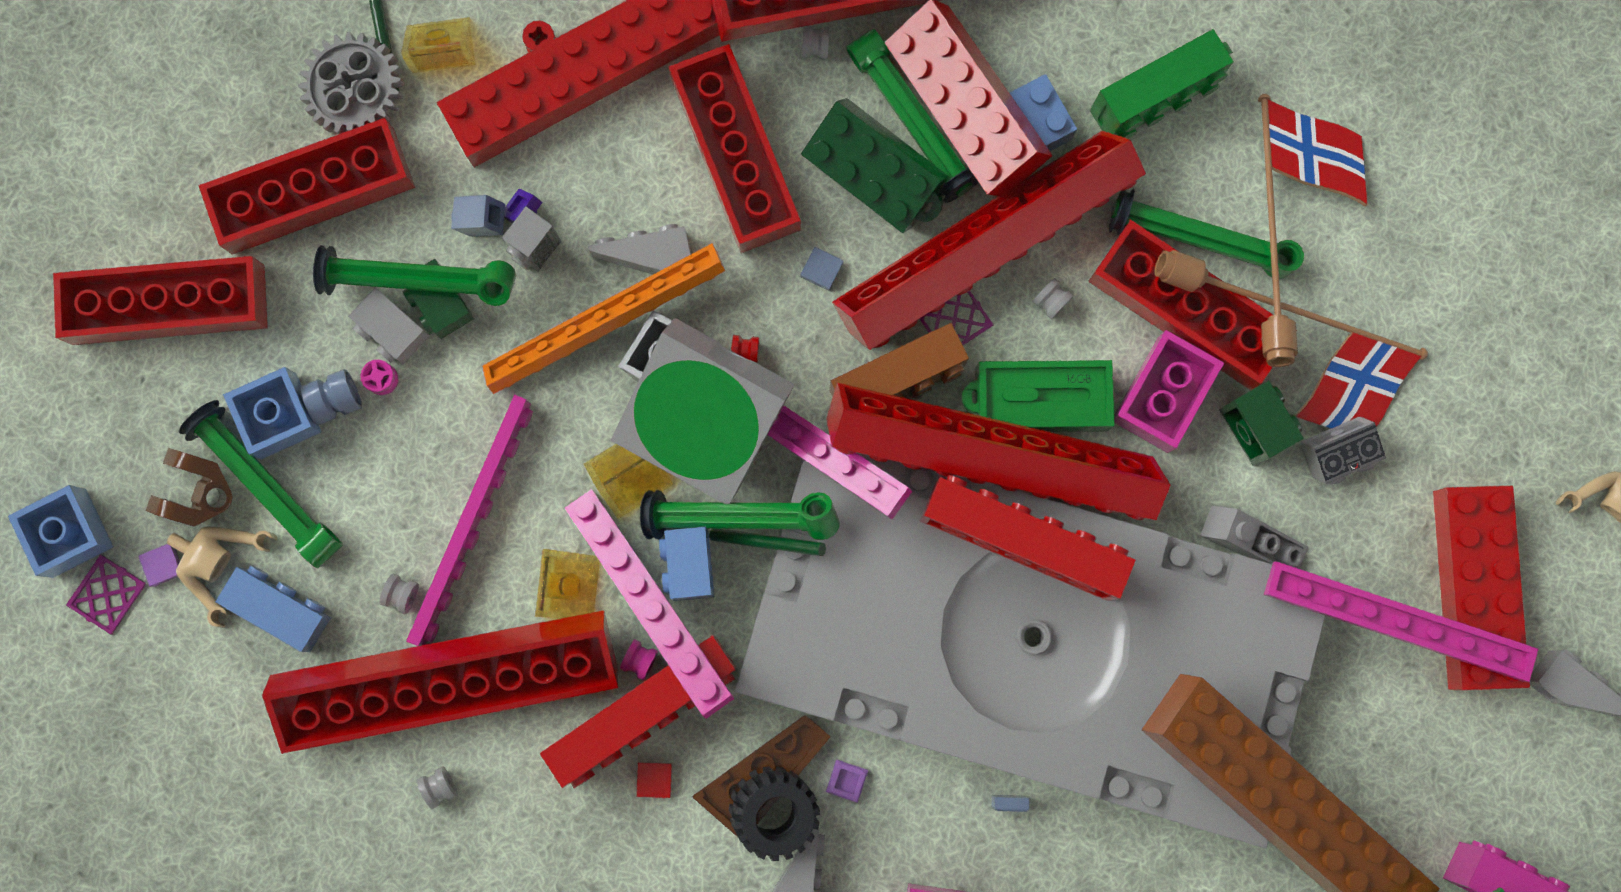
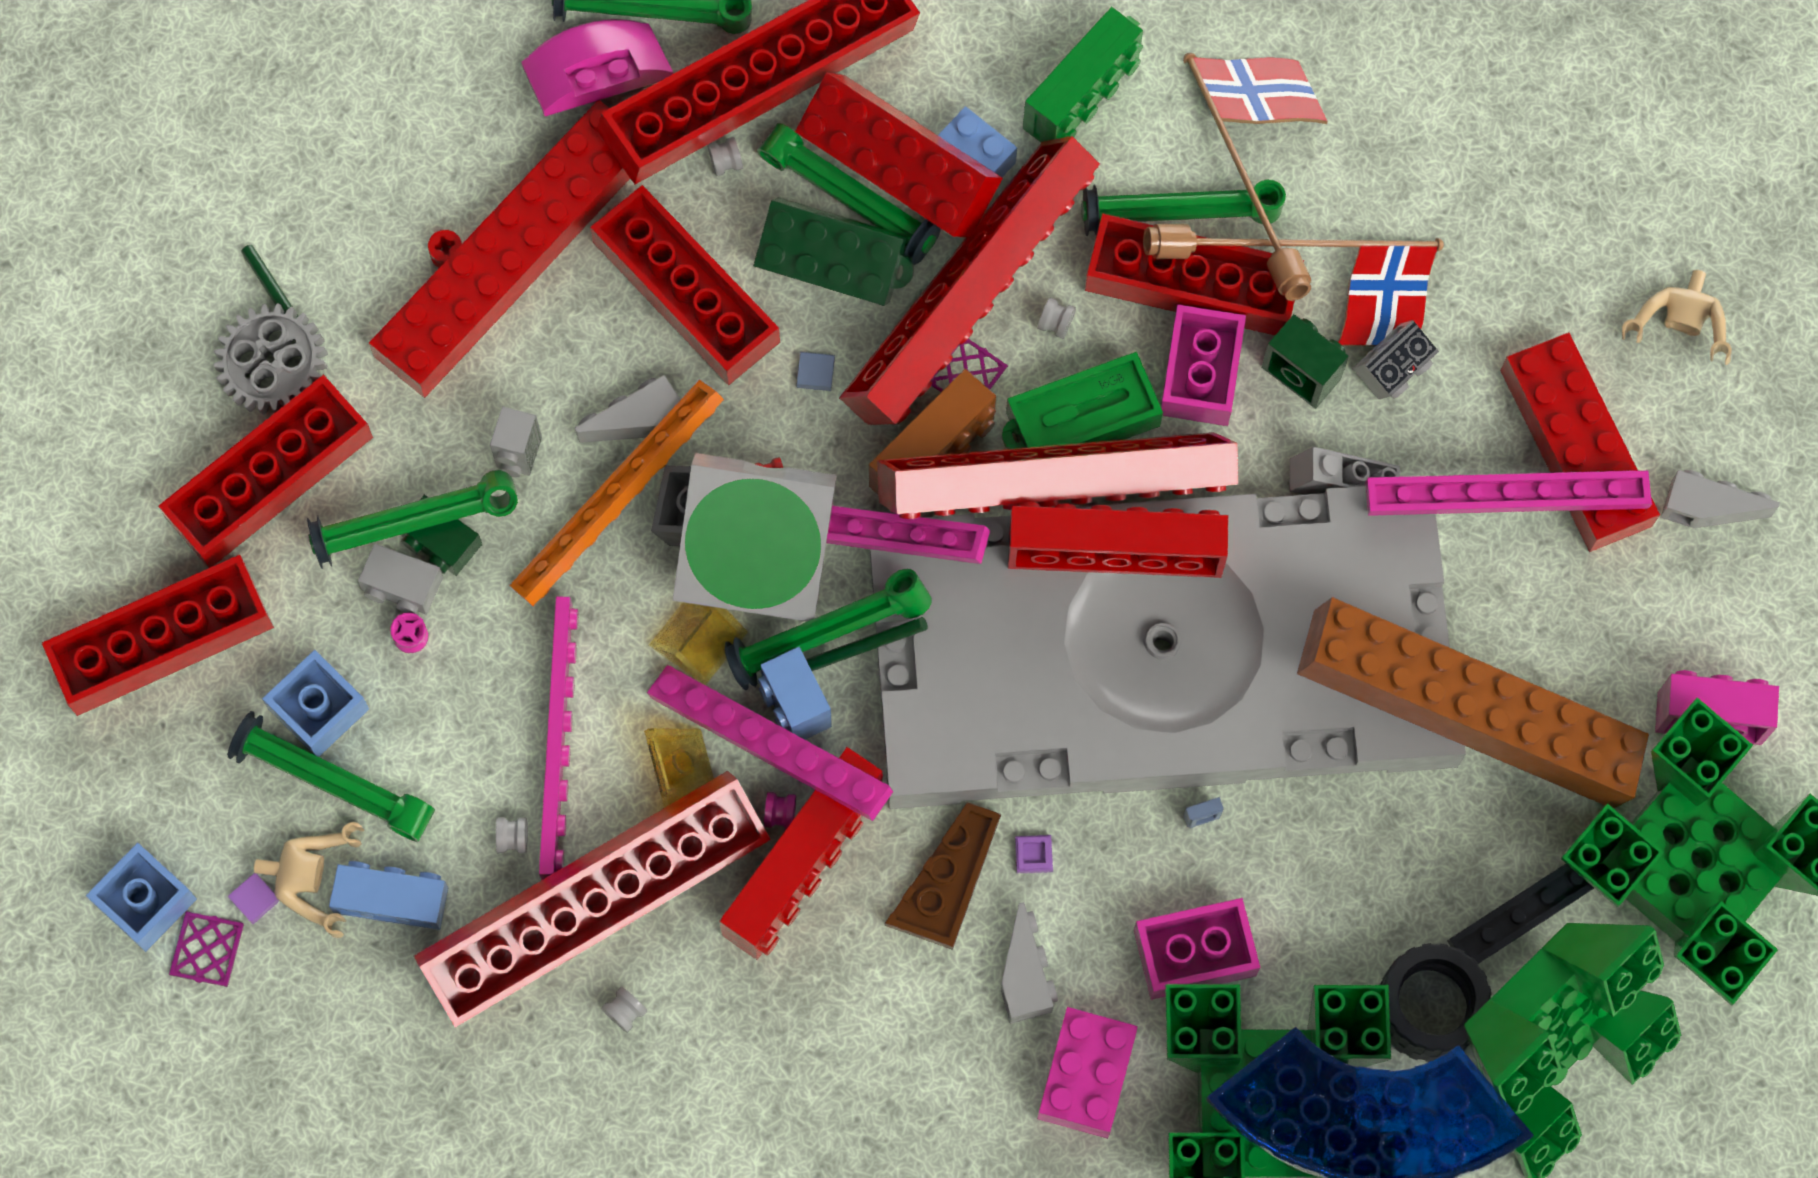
camera: 20 degrees left, 10 degrees down
(200, 510) = (275, 823): reddish brown piece -> none
(329, 397) = (369, 667): sand blue wheel -> none
(438, 45) = (346, 290): clear yellow slope -> none
(478, 215) = (450, 439): sand blue brick -> none
(518, 202) = (487, 417): dark purple plate -> none
(654, 780) = (840, 924): red tile -> none
(789, 835) = (994, 880): black tyre -> none

